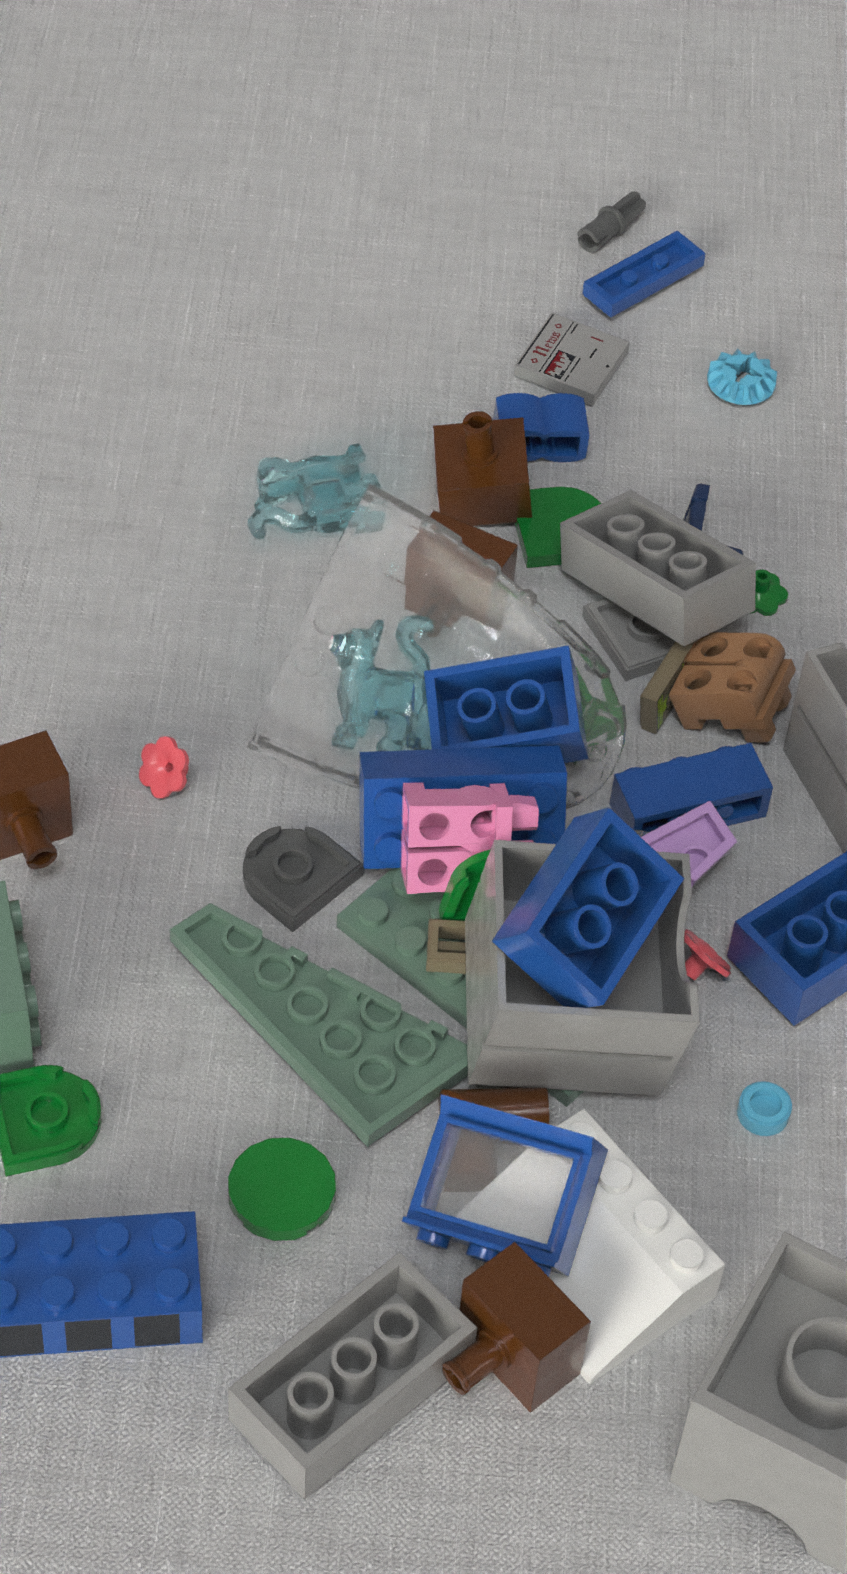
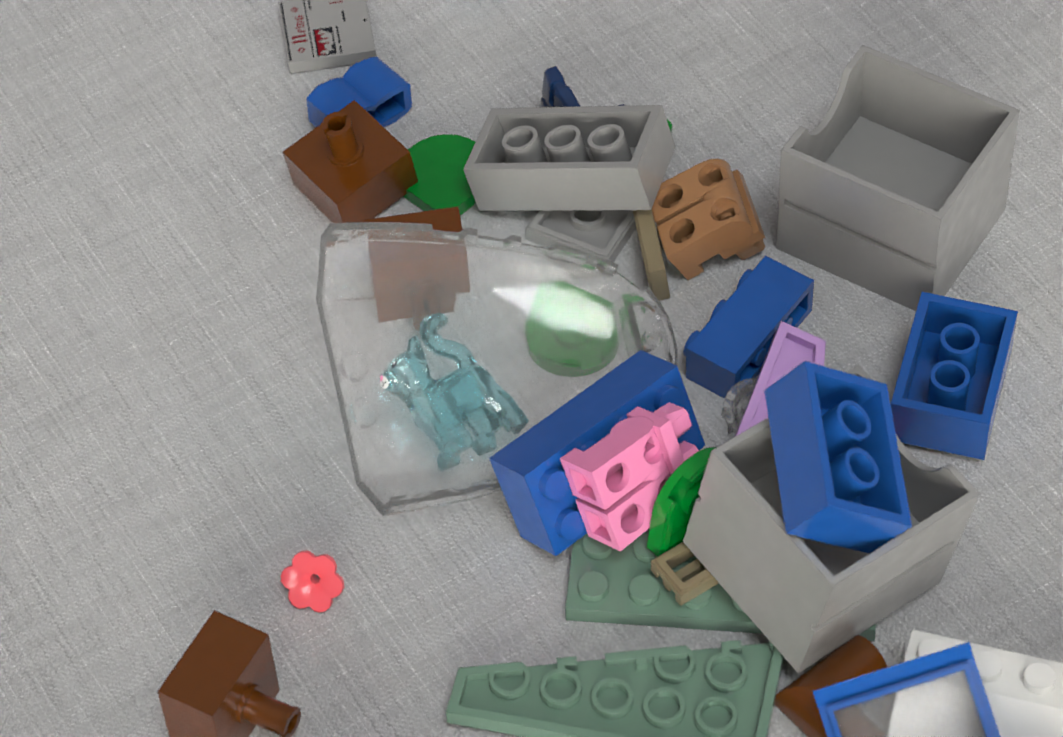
camera: 30 degrees left, 0 degrees up
(297, 872) = (495, 597): dark grey tile -> none
(324, 486) = (229, 266): clear light blue animal -> none
(508, 703) = (567, 344): blue brick -> none
(764, 1108) = (1021, 539): medium azure tile -> none

